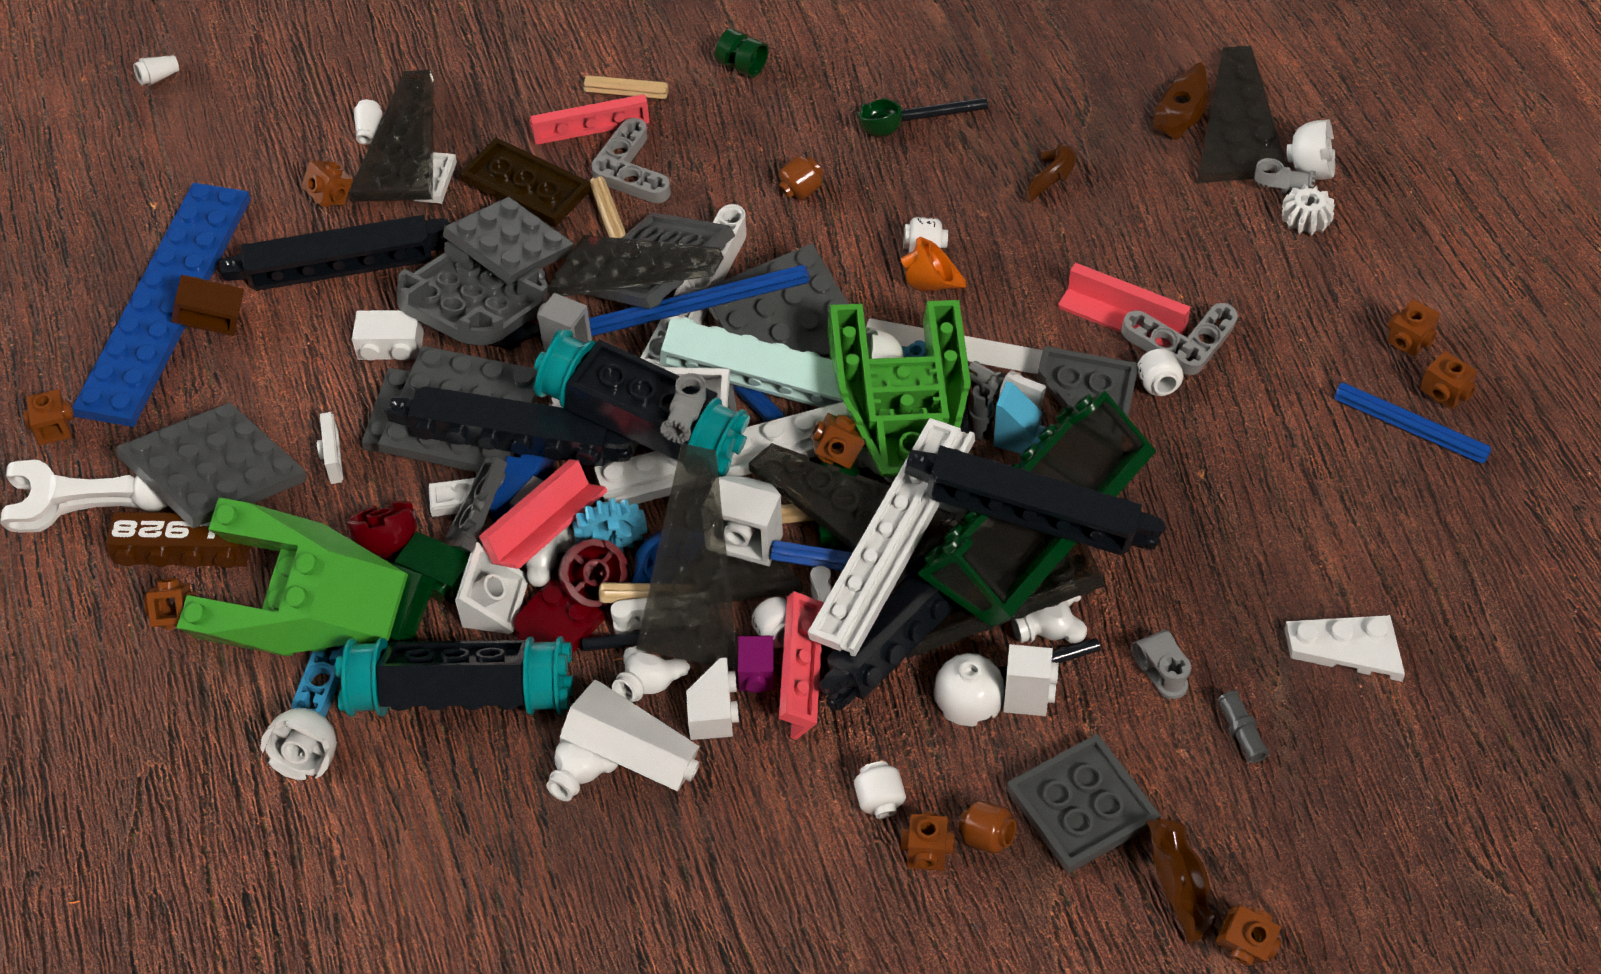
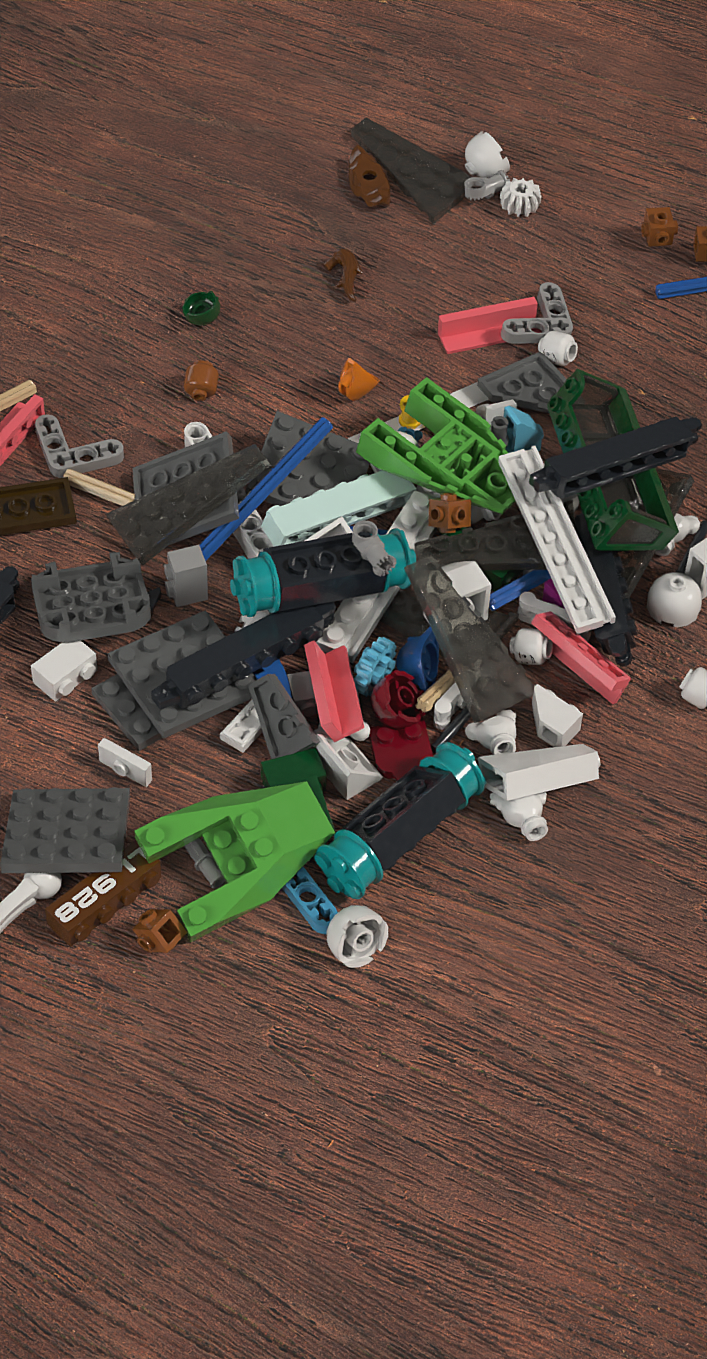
camera: 50 degrees left, 0 degrees up
(384, 529) = (234, 773): dark red cylinder -> none
(508, 240) = (67, 549): dark grey plate -> none
(742, 53) = (57, 326): dark green wheel -> none
(756, 663) = (550, 675): magenta brick -> none
(927, 228) = (326, 363): white head -> none
(944, 109) = (221, 286): black bar -> none

